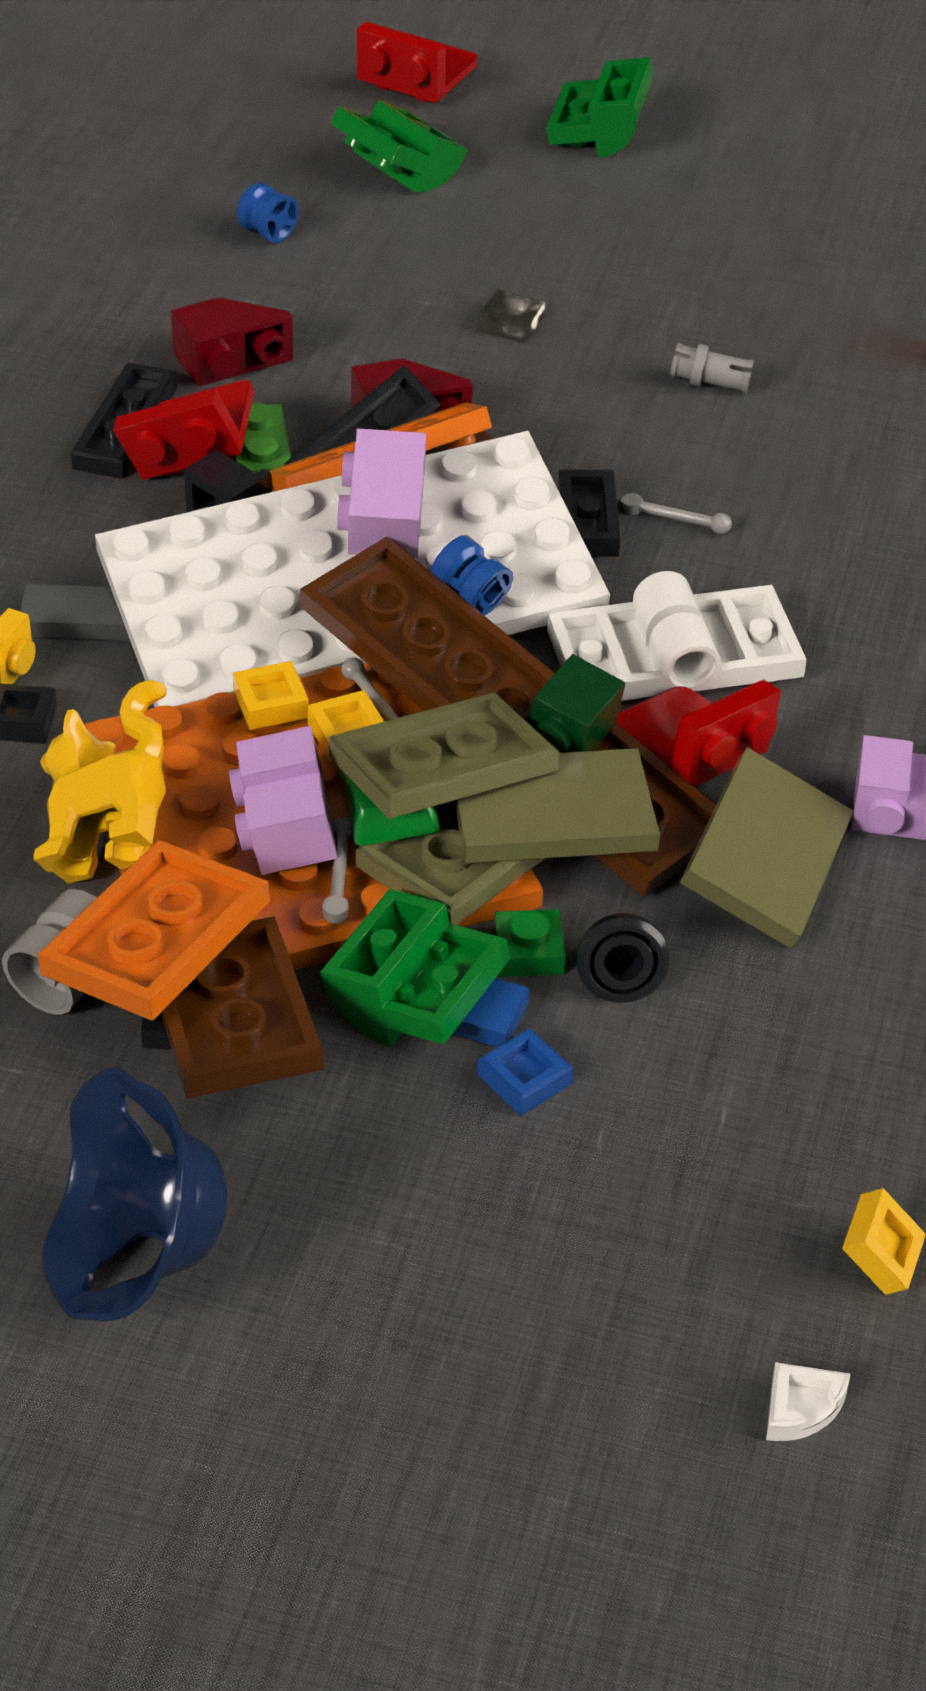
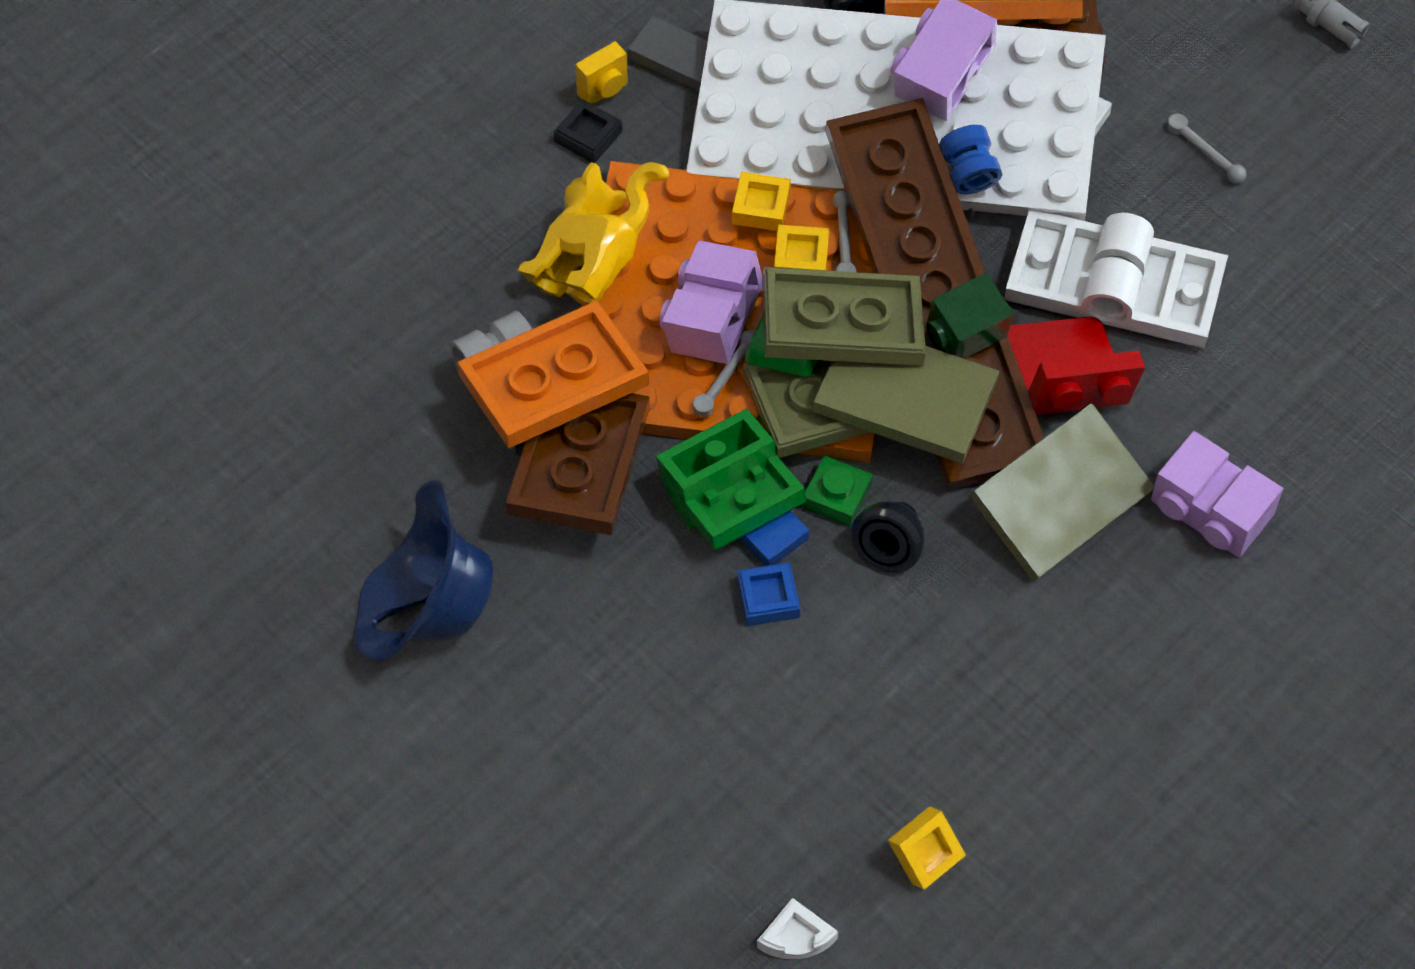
camera: 30 degrees right, 15 degrees up
(593, 507) = (1130, 121): black plate -> none

